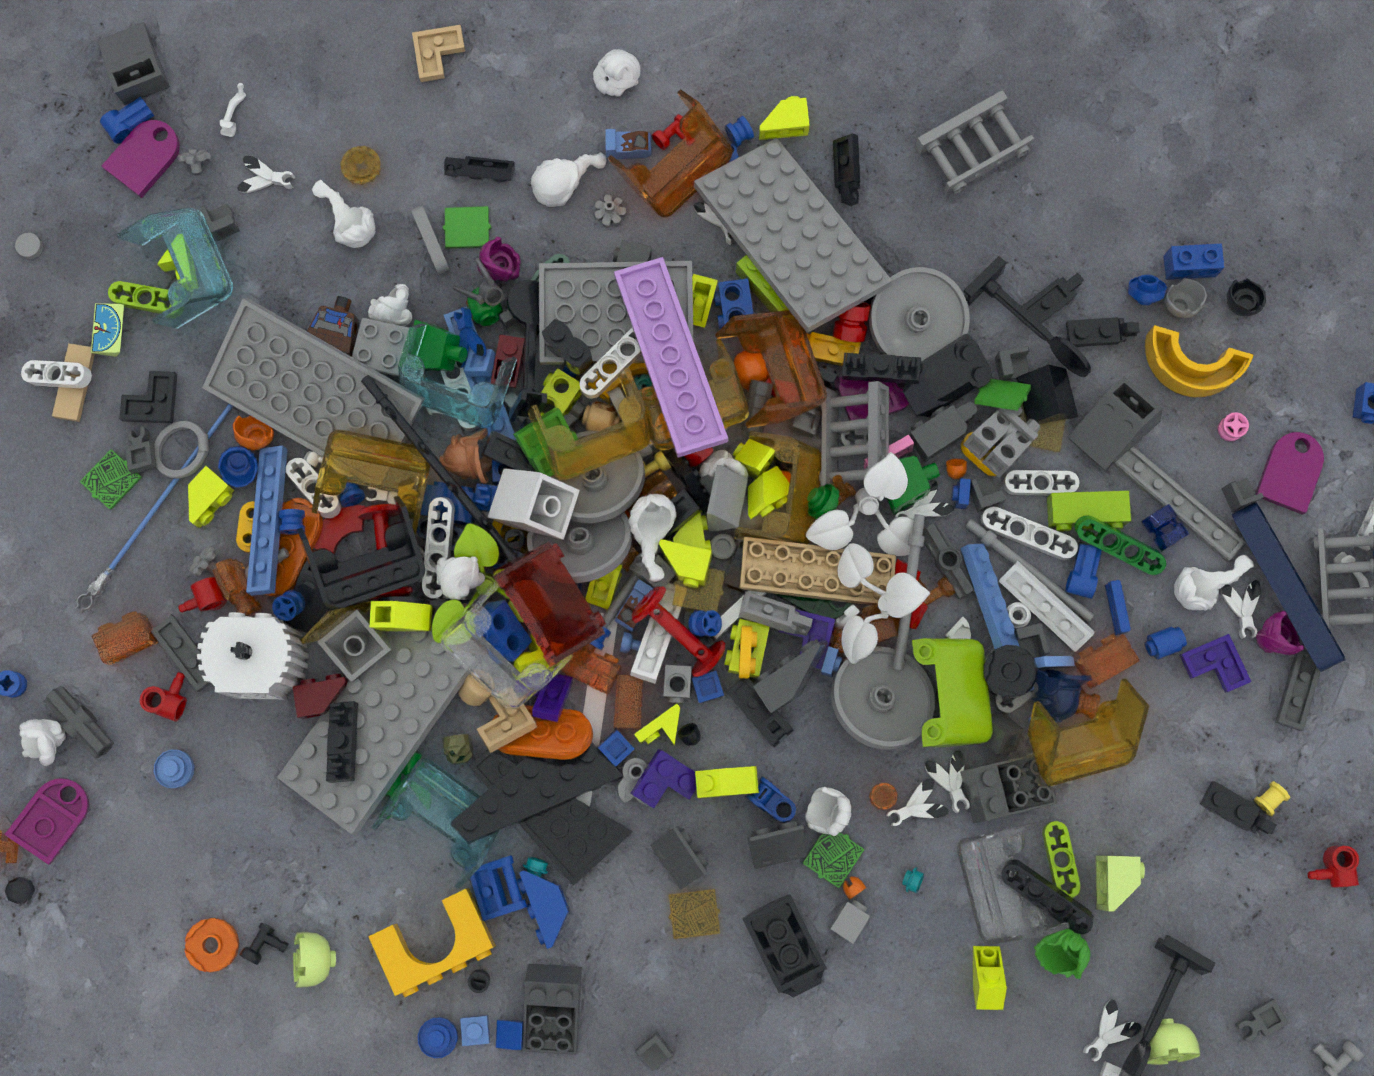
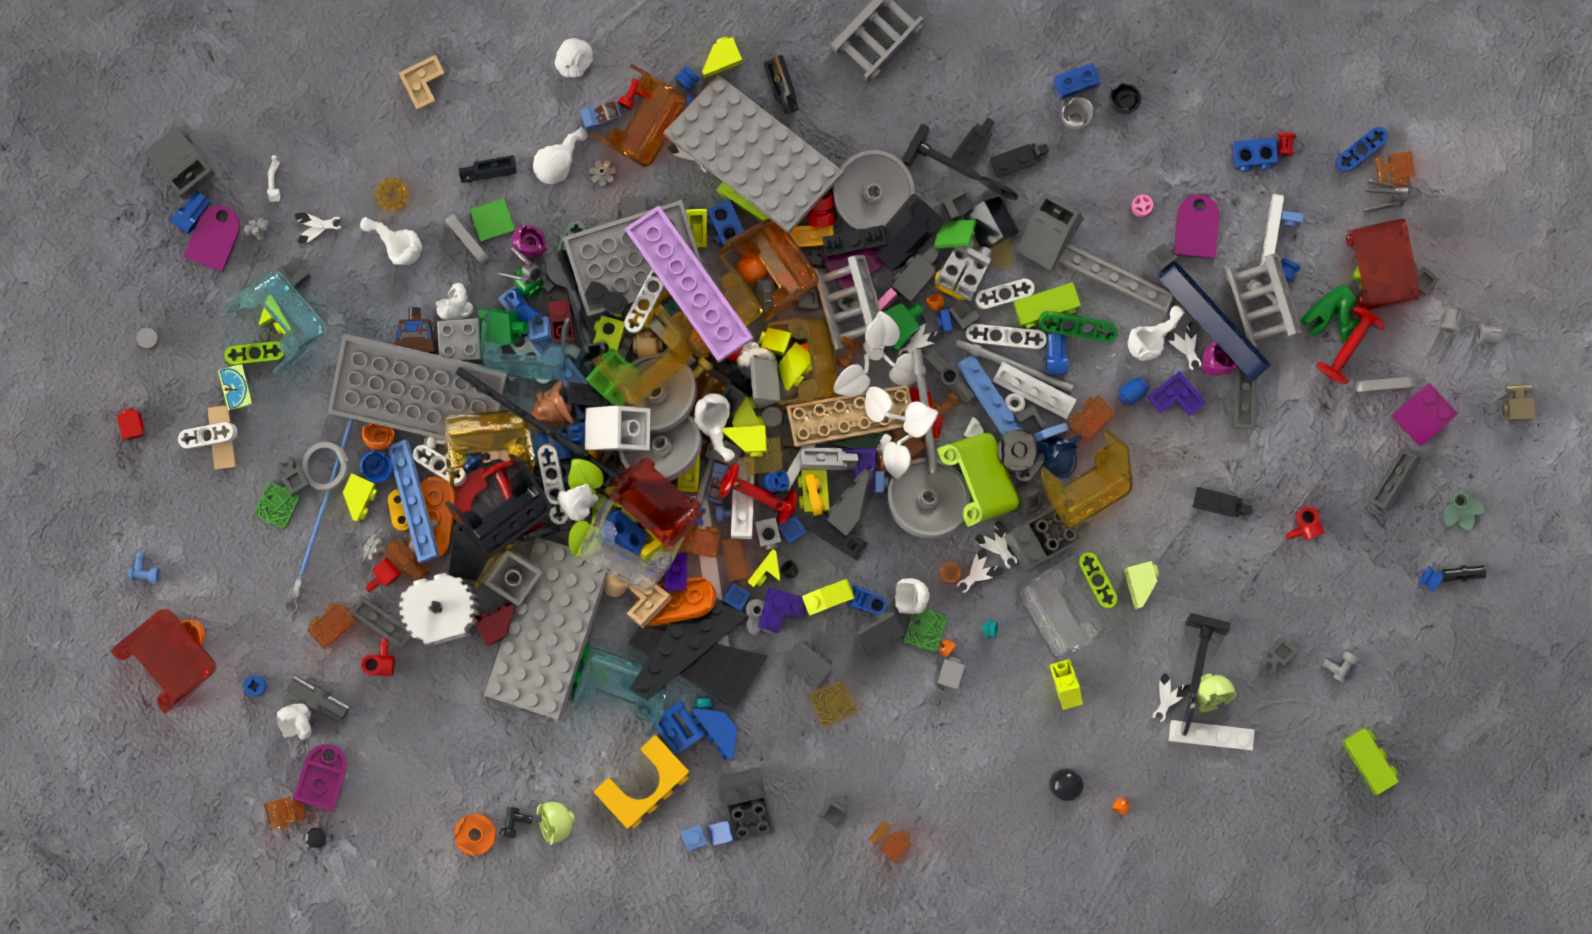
camera: 15 degrees left, 5 degrees up
(156, 405) = (295, 434): black plate -> none
(174, 769) = (403, 712): medium blue plate -> none
(288, 611) = (452, 567): blue wheel -> none
(291, 521) = (433, 497): blue wheel -> none
(342, 742) = (527, 653): black plate -> none
(400, 616) = (542, 545): neon yellow slope -> none
(437, 1037) = (668, 850): blue plate -> none
(458, 748) = (616, 632): olive rock -> none
(478, 985) = (686, 804): black hinge -> none
(785, 946) = (908, 706): black slope -> none
(822, 500) = (839, 360): green plate -> none
(1044, 899) = (1095, 608): black beam -> none
(1063, 953) = (1116, 649): bright green hair -> none
(1088, 704) = (1085, 457): clear orange wheel -> none
(1117, 607) = (1089, 375): blue tile -> none
(1147, 289) = (1045, 114): blue plate -> none
(1160, 519) = (1104, 296): clear blue wheel -> none
(1185, 376) = (1097, 177): yellow brick -> none
(1272, 798) = (1244, 487): light yellow bush -> none

